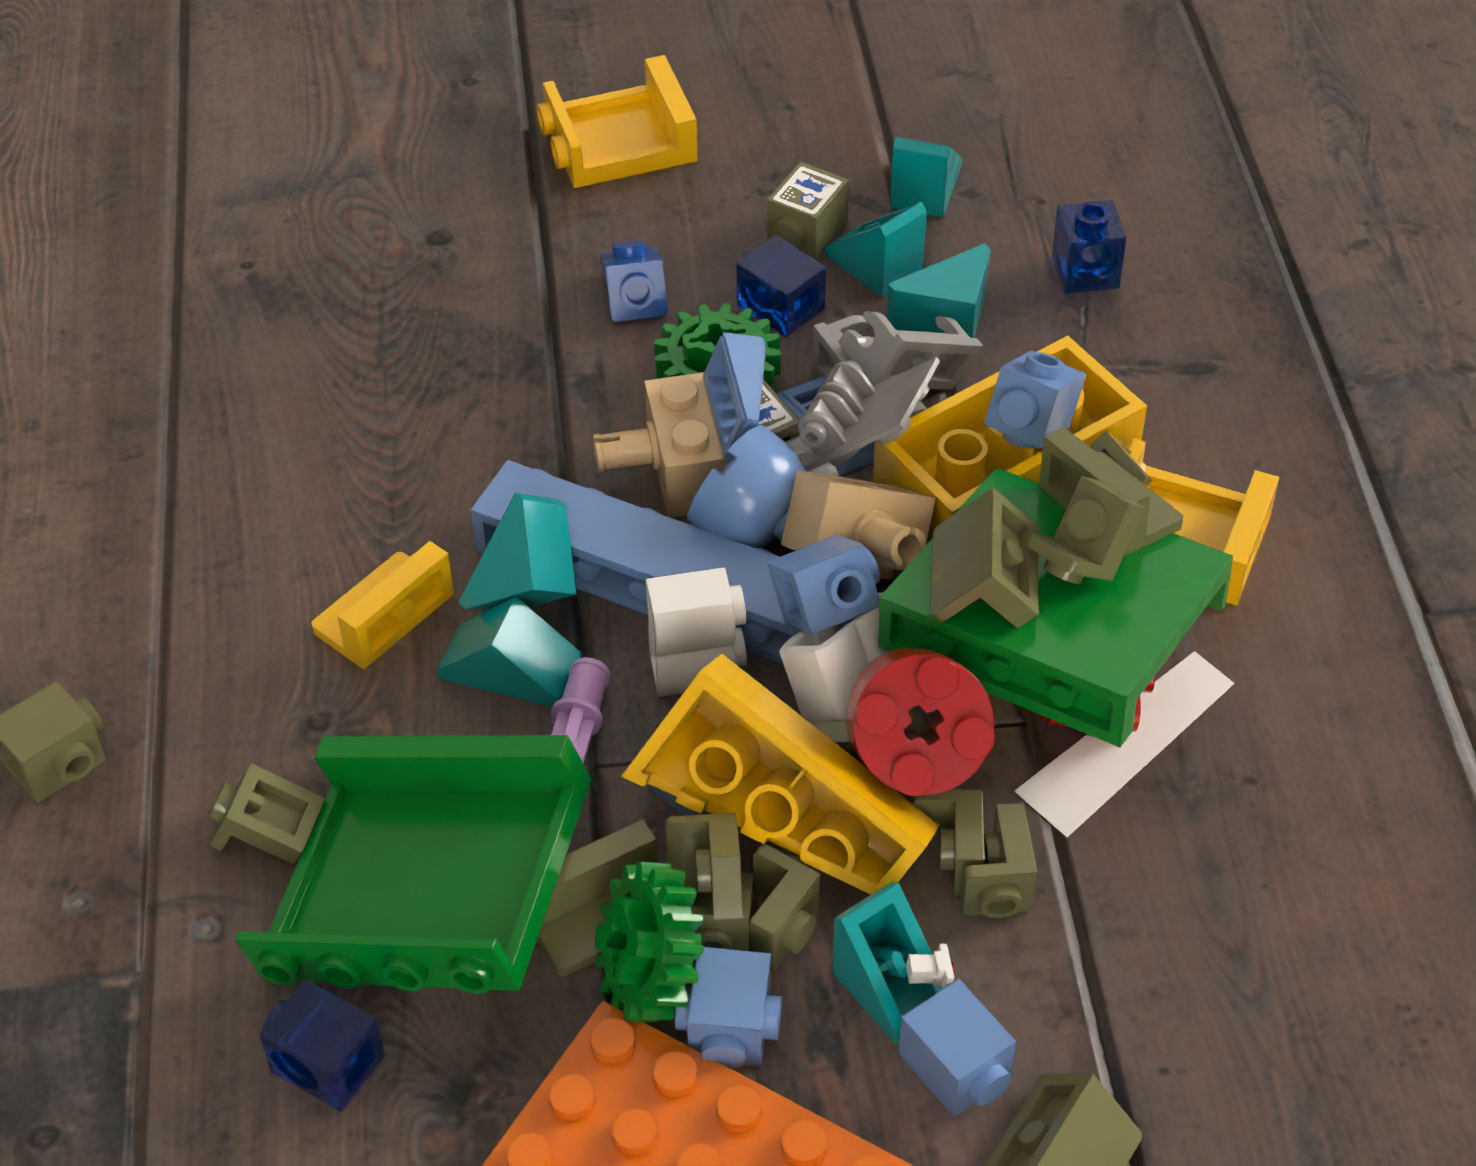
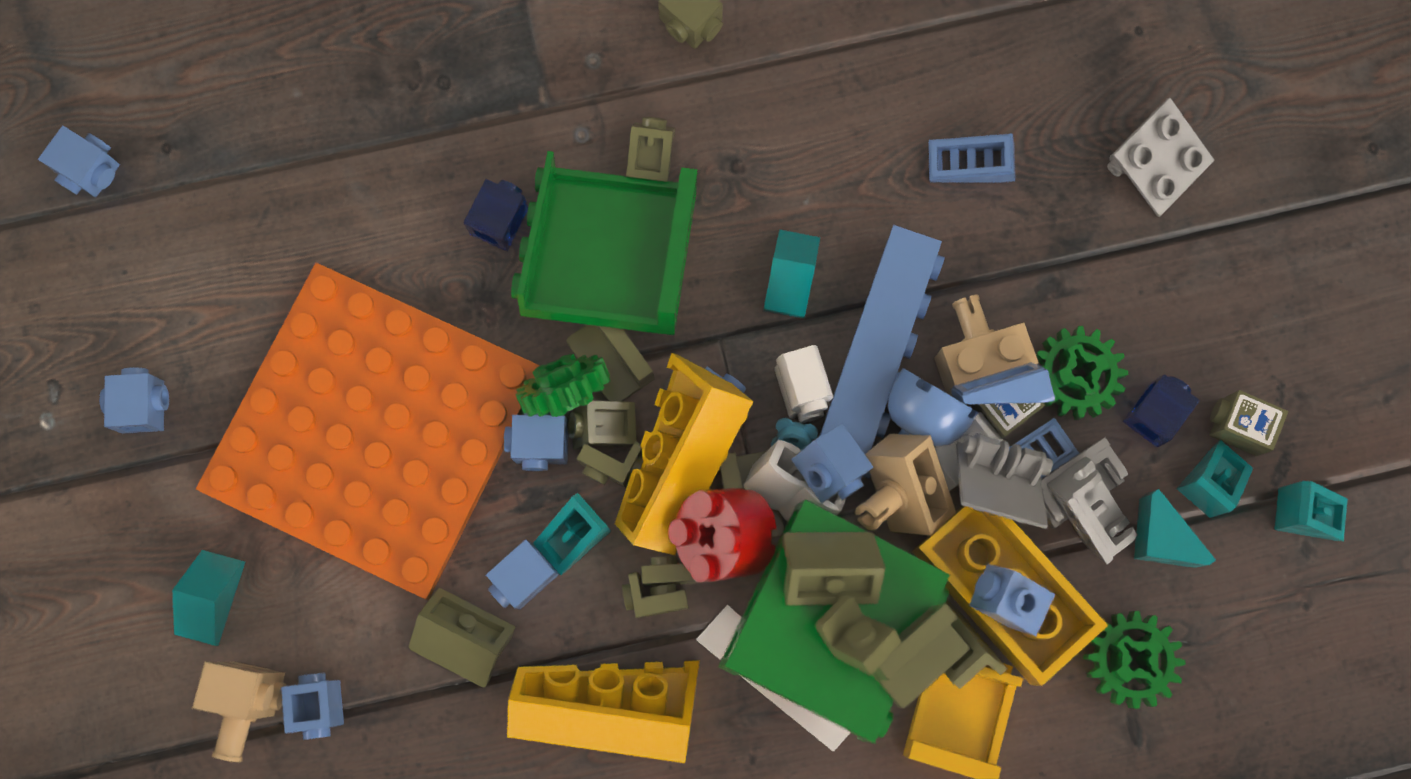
camera: 85 degrees right, 30 degrees up
(386, 399) = (988, 144): none -> medium blue slope
(386, 604) = (828, 185): yellow panel -> none
(429, 253) = (1161, 157): none -> light grey hinge
(525, 557) = (847, 268): teal slope -> none
(579, 708) = (744, 321): lavender axle -> none
(621, 129) = (1325, 268): yellow panel -> none
(634, 281) = (1155, 302): blue bracket -> none
(710, 856) = (620, 419): olive bracket -> none
(767, 667) = (789, 429): none -> medium azure plate
(931, 969) = (563, 555): white piece -> none
(1088, 246) = (1239, 643): clear blue brick -> none
(1113, 336) = (1147, 673): none -> green gear
(1179, 938) = (606, 708): none -> yellow wedge

